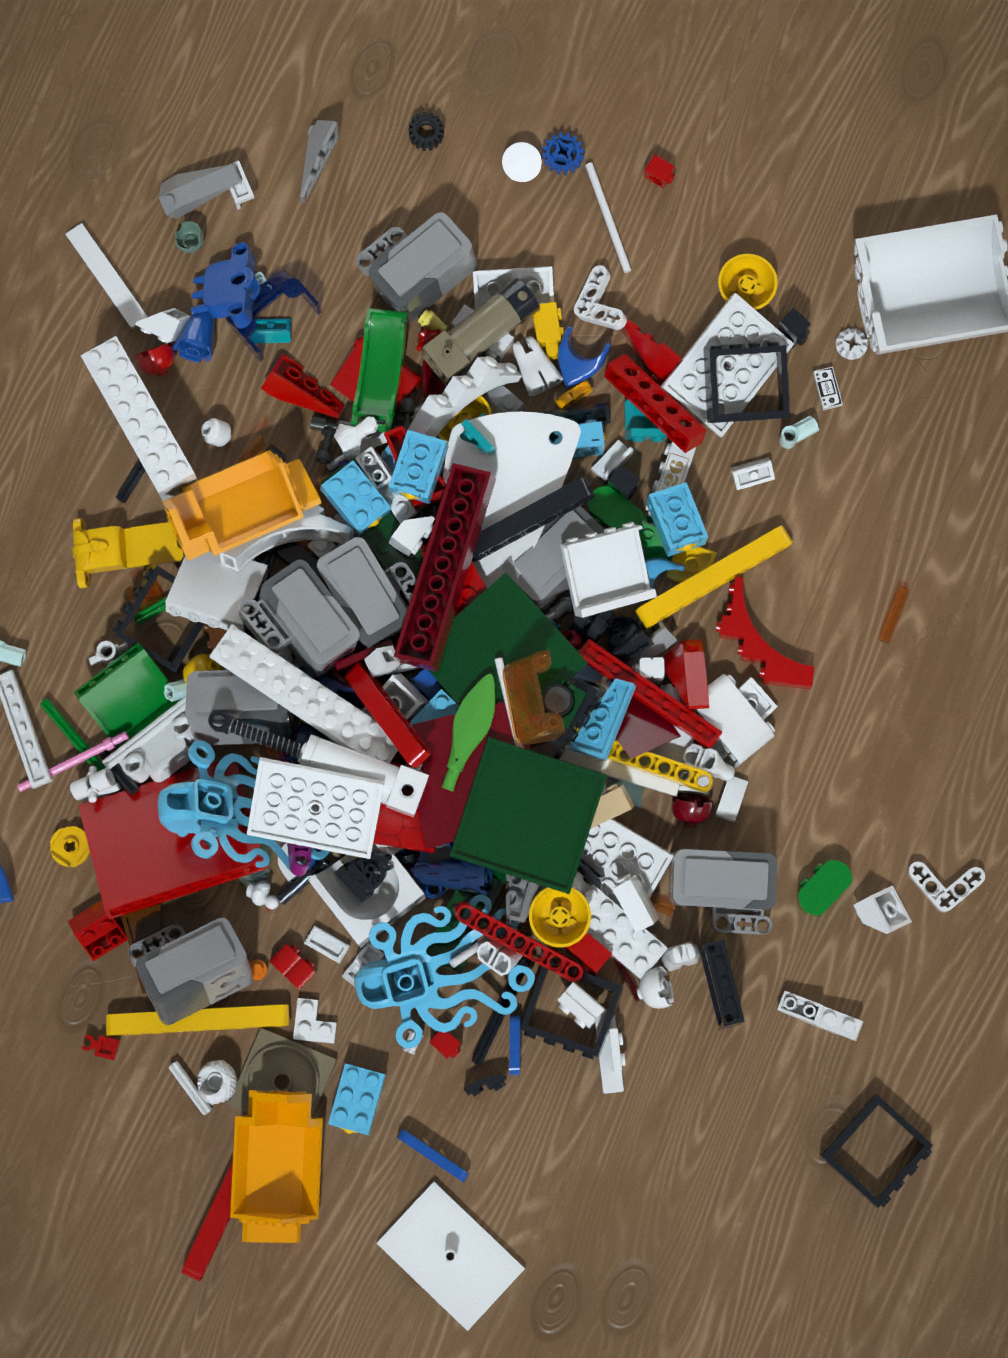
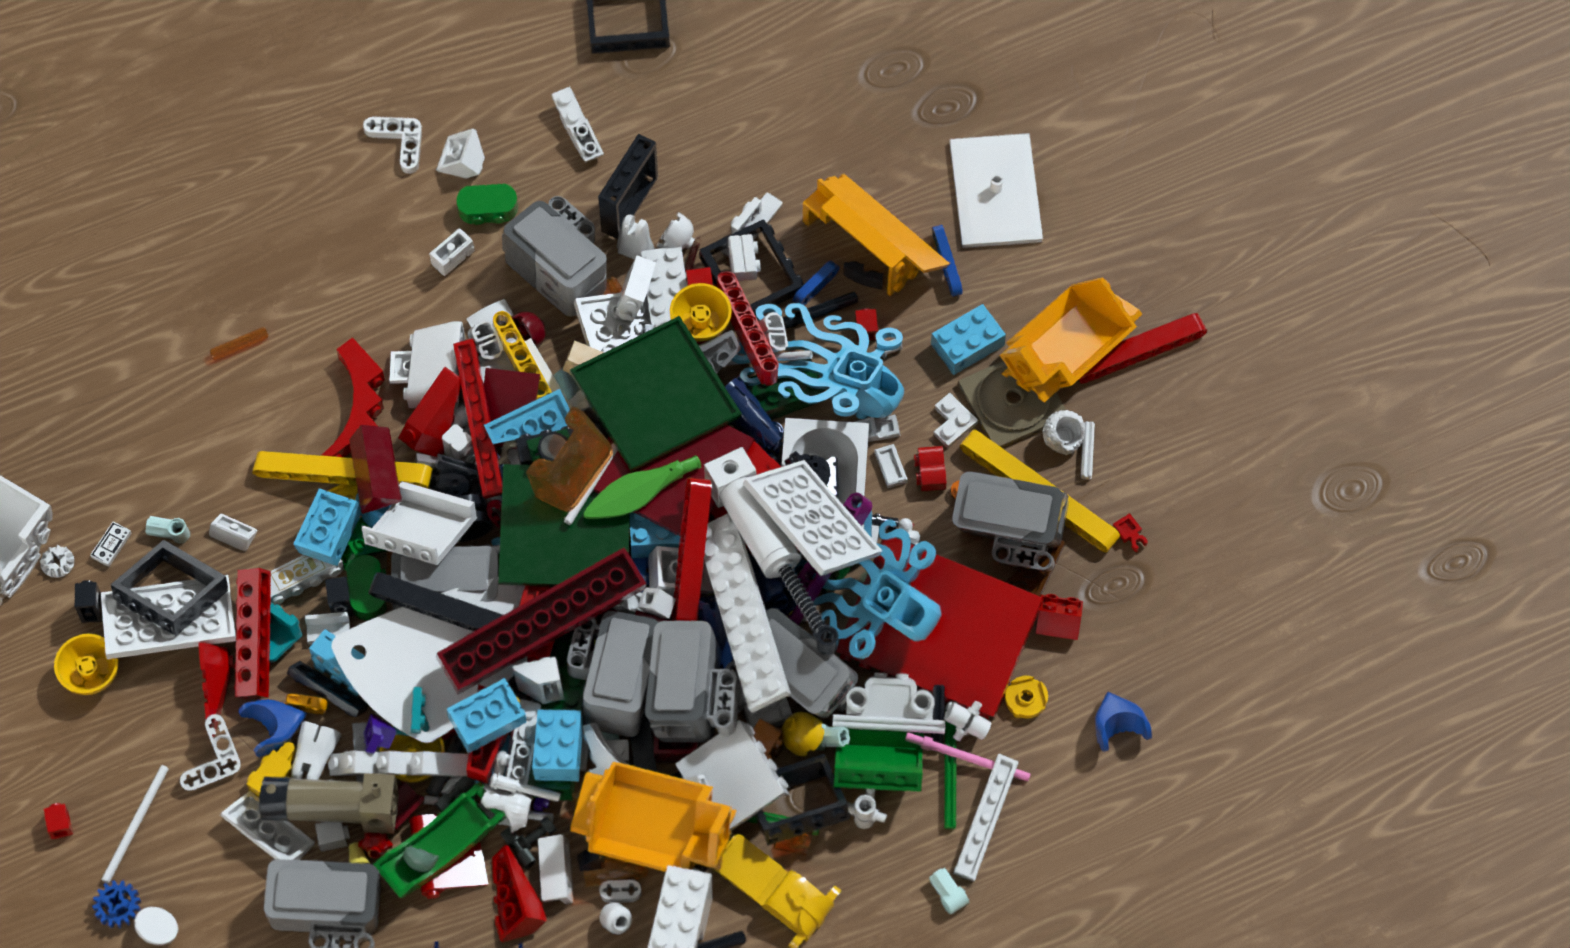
camera: 140 degrees left, 15 degrees down
(230, 454) = (620, 885): none -> white beam
(289, 431) = (555, 869): none -> white panel
(361, 446) = (513, 785): none -> white pin
(380, 347) = (419, 859): none -> sand green hair
(386, 456) = (501, 760): none -> white arm
(492, 400) = (377, 734): none -> dark purple slope
(503, 1122) = (873, 228): none -> light orange panel
(684, 588) = (374, 468): none -> dark red slope
(809, 821) = (451, 252): none -> white brick

